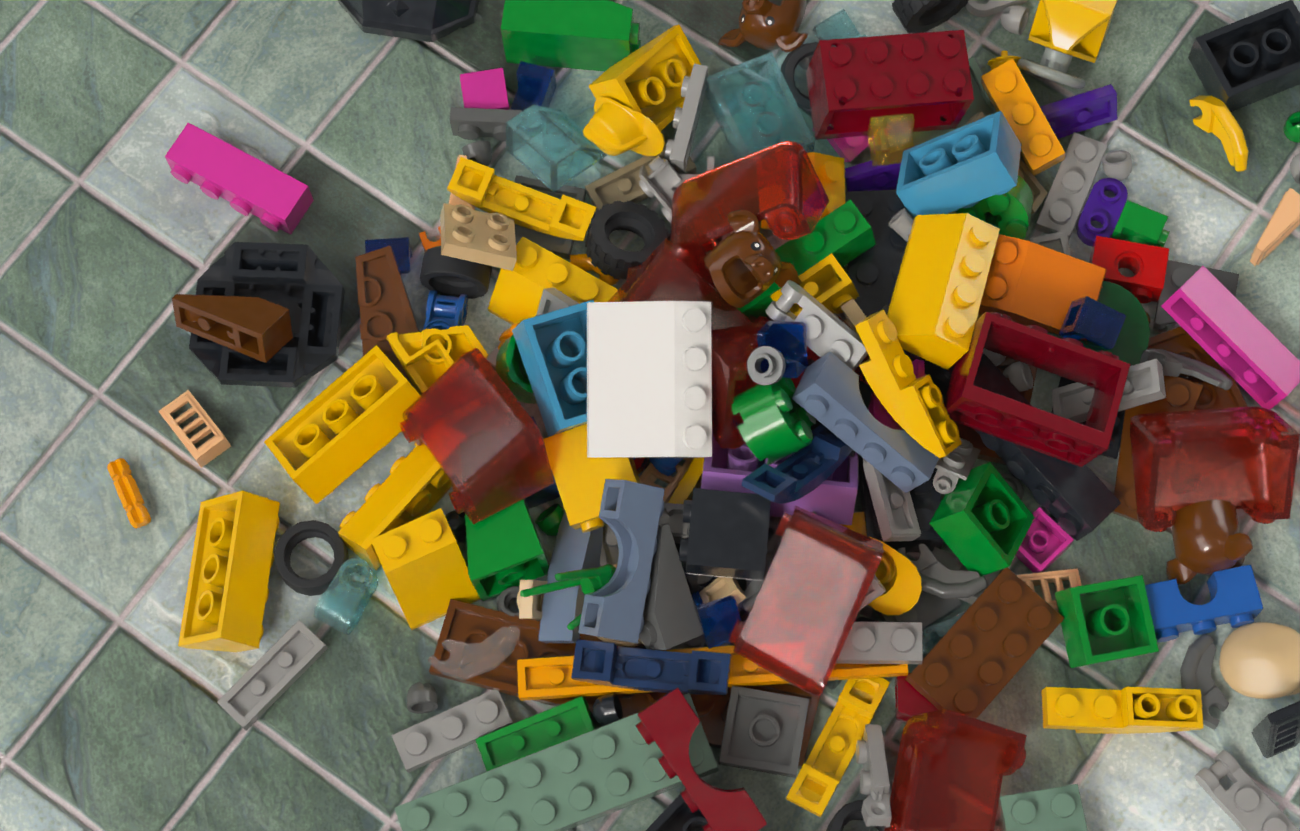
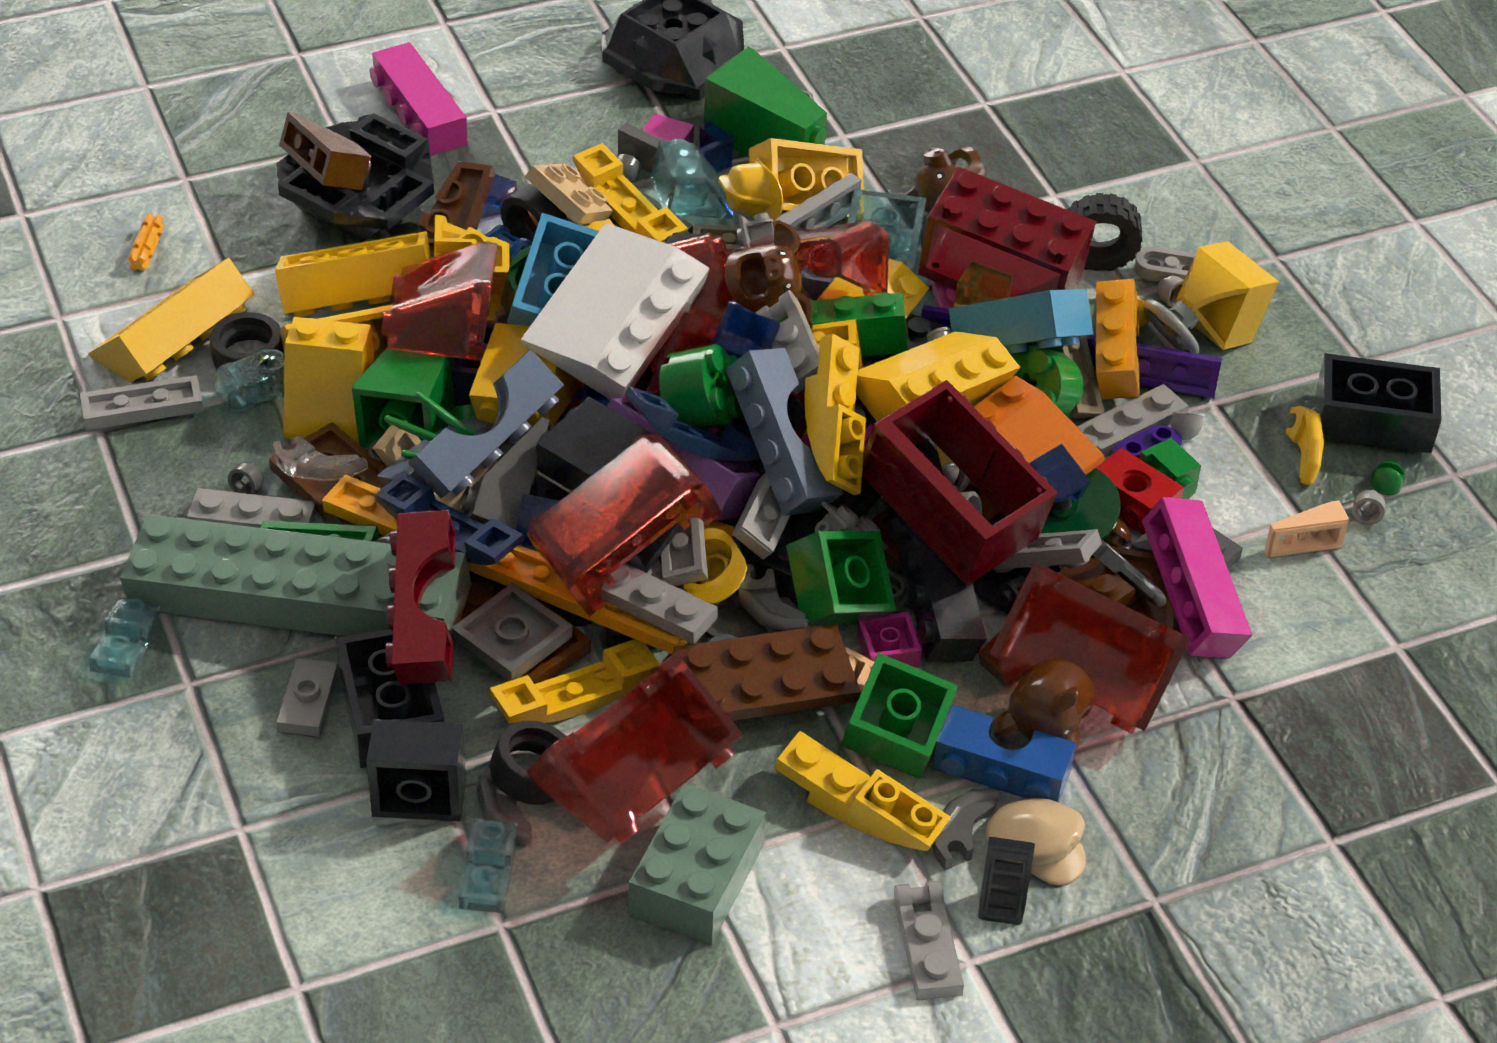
camera: 25 degrees right, 25 degrees down
(209, 449) = (236, 231): light nougat slope -> none
(776, 365) = (719, 326): plate -> none
(874, 777) = (580, 709): light grey hinge -> none

